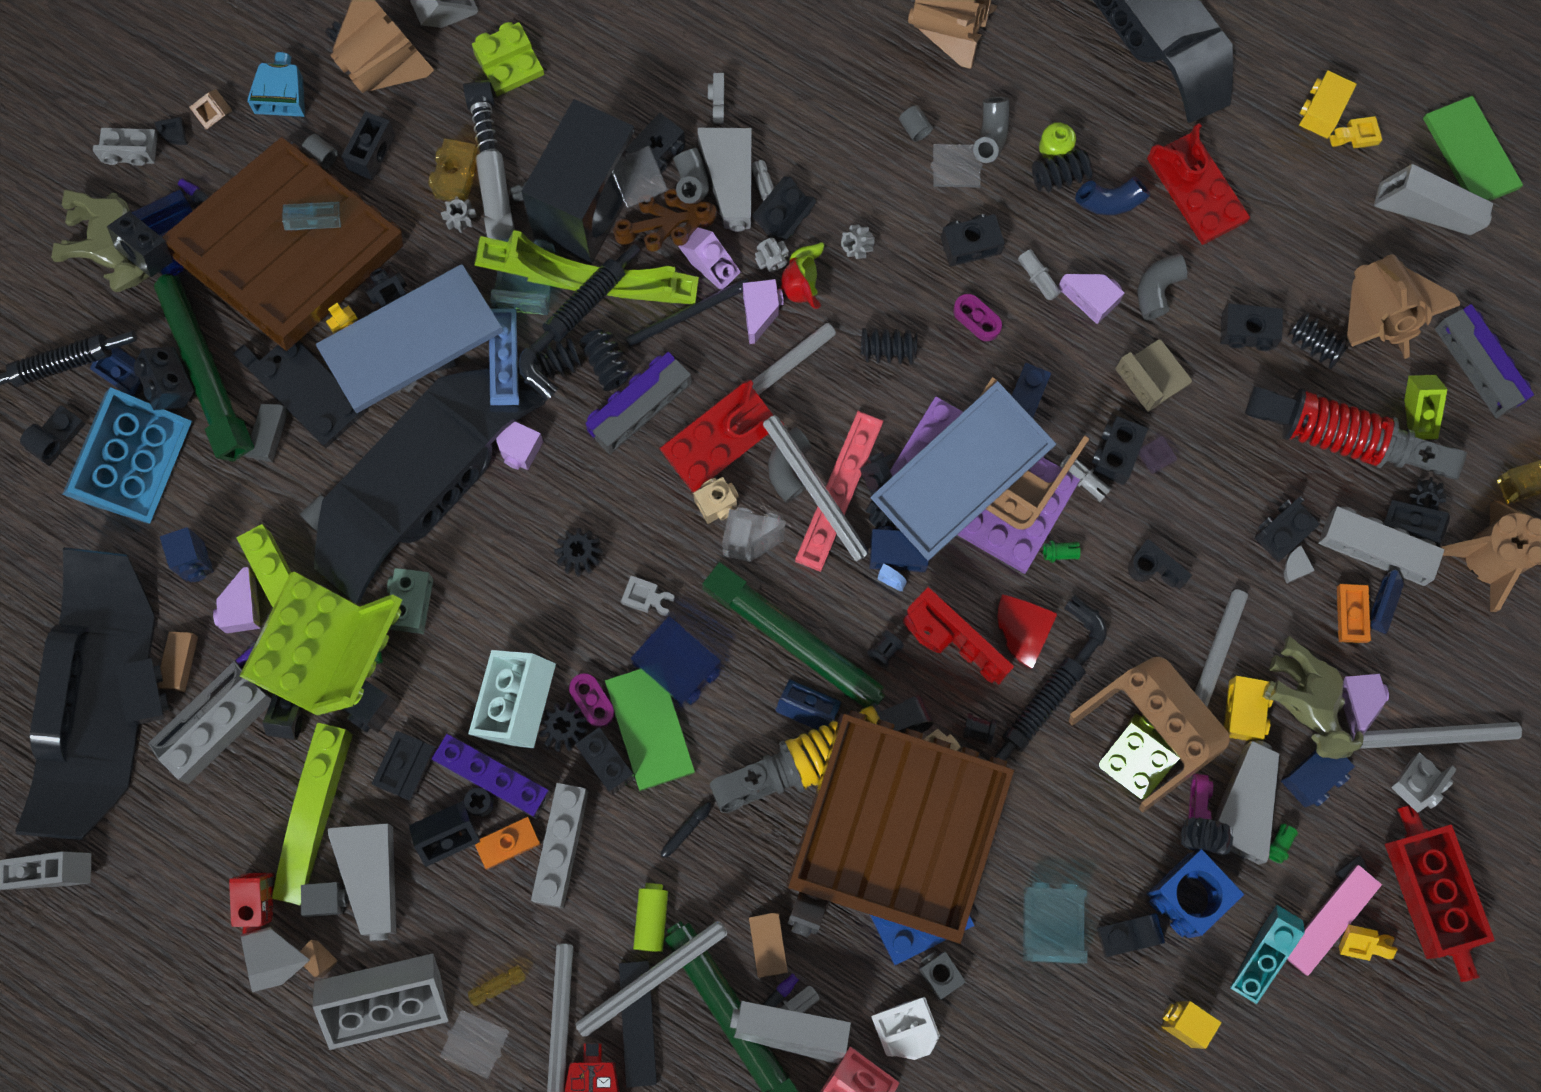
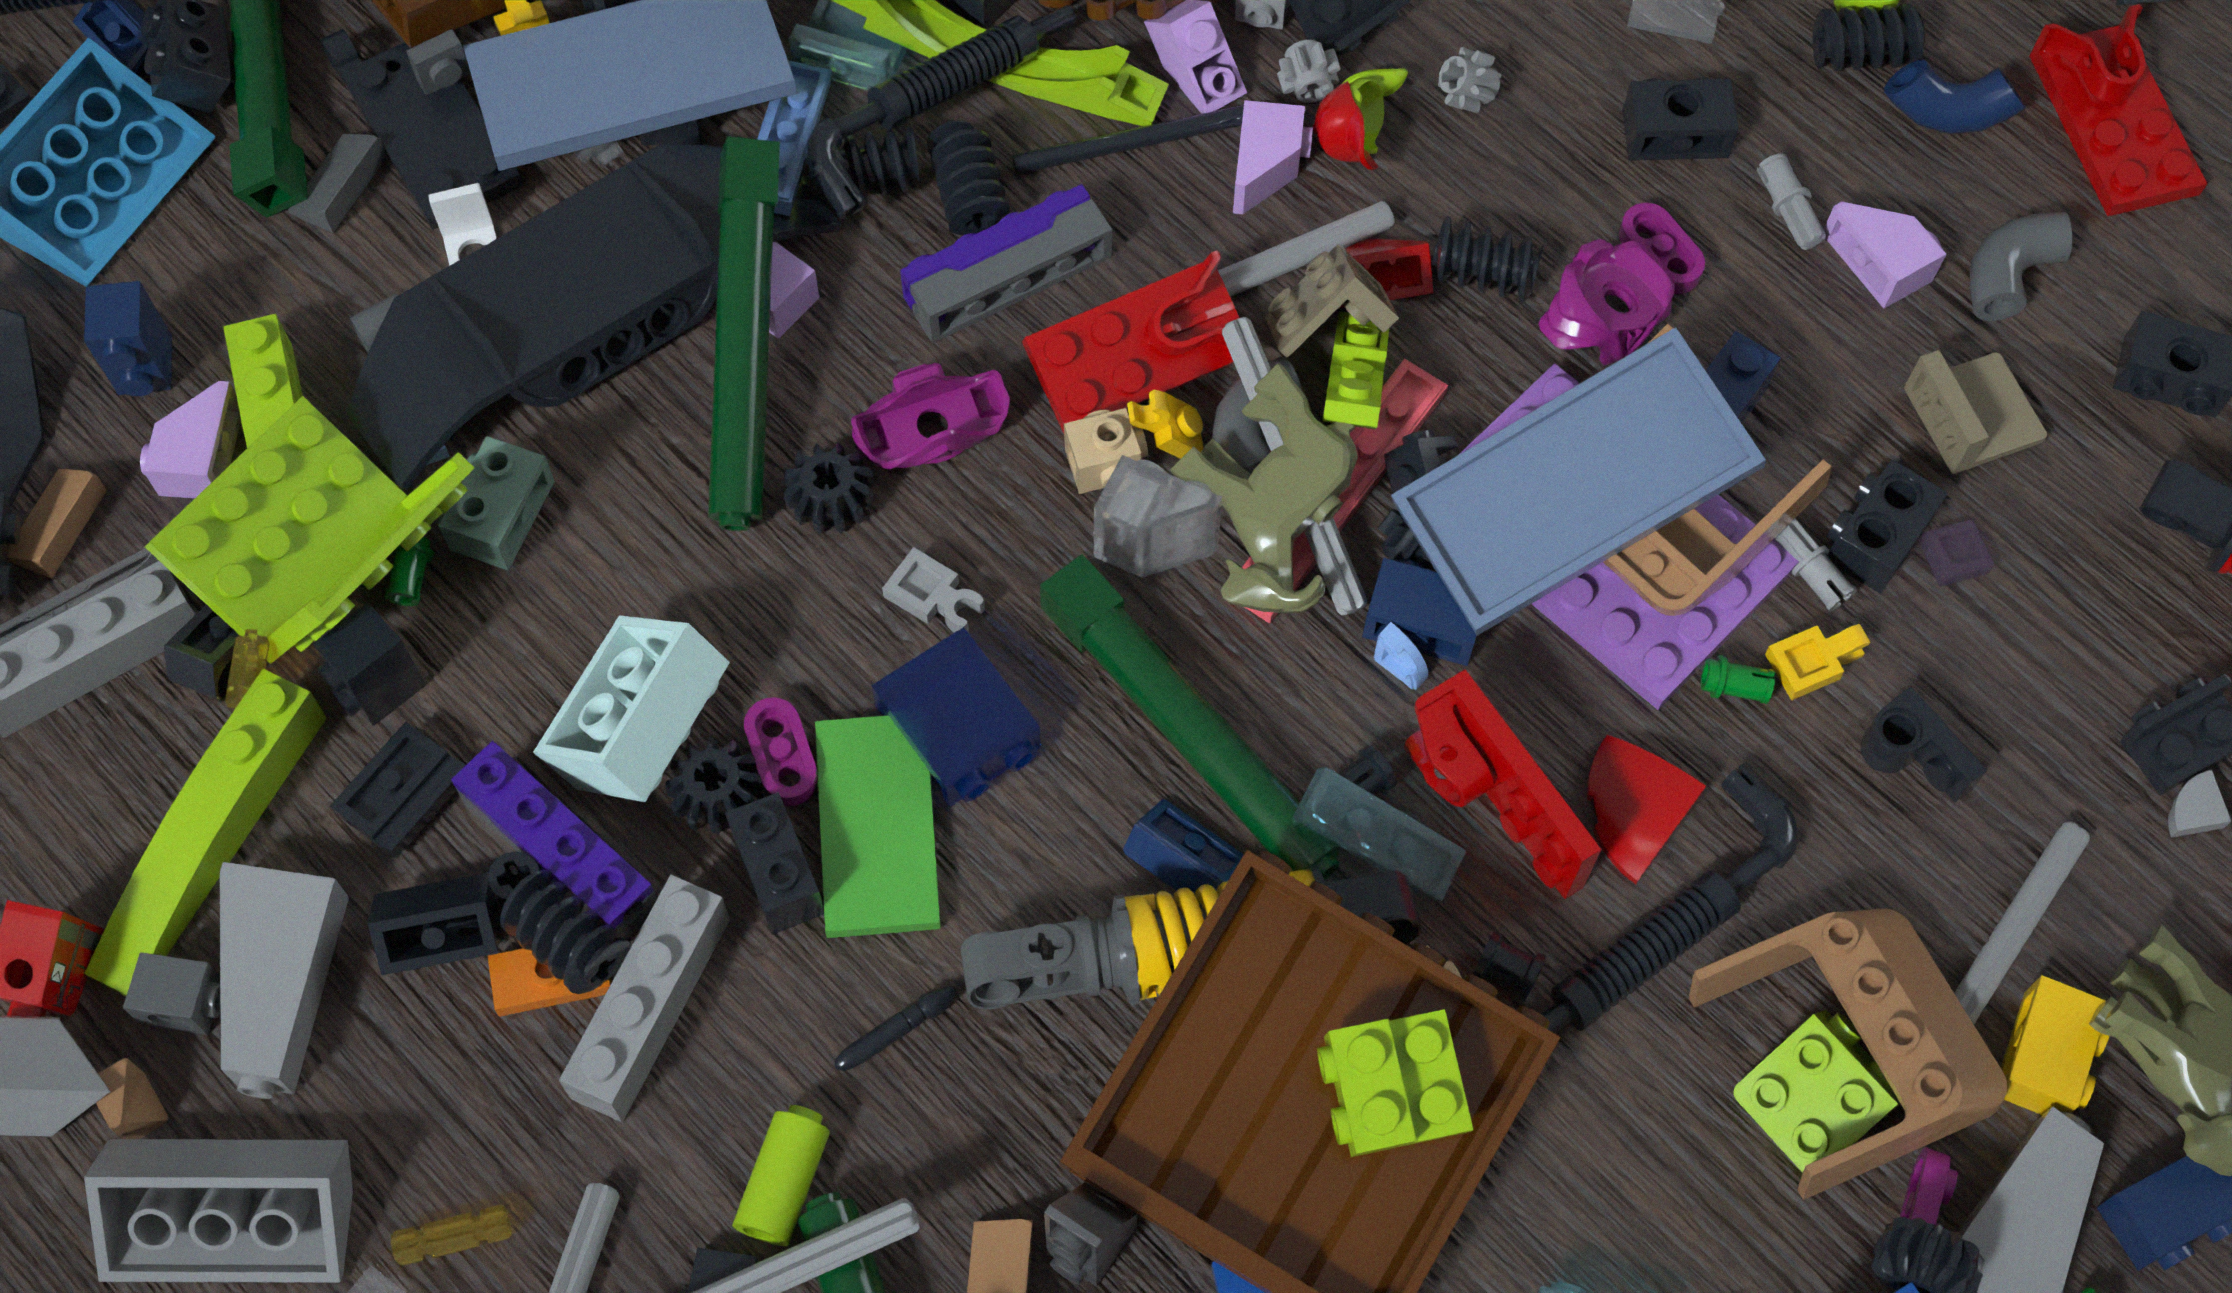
camera: 15 degrees right, 10 degrees down
(304, 355) = (439, 62): none -> dark grey plate
(308, 723) = (247, 662): none -> clear yellow axle
(342, 442) = (462, 218): none -> white bracket
(497, 407) = (742, 330): none -> dark green brick
(510, 827) = (561, 934): none -> black piece
(639, 487) = (970, 405): none -> magenta piece
(748, 476) = (1173, 422): none -> yellow plate
(808, 390) = (1329, 282): none -> dark tan bracket
(813, 511) = (1281, 495): none -> olive animal
(833, 362) = (1398, 265): none -> red slope
(836, 427) = (1356, 373): none -> lime slope
(902, 677) = (1379, 833): none -> clear light blue plate
(940, 812) = (1394, 1083): none -> lime plate
(944, 370) = (1579, 309): none -> magenta piece
(1096, 532) = (1811, 661): none -> yellow plate

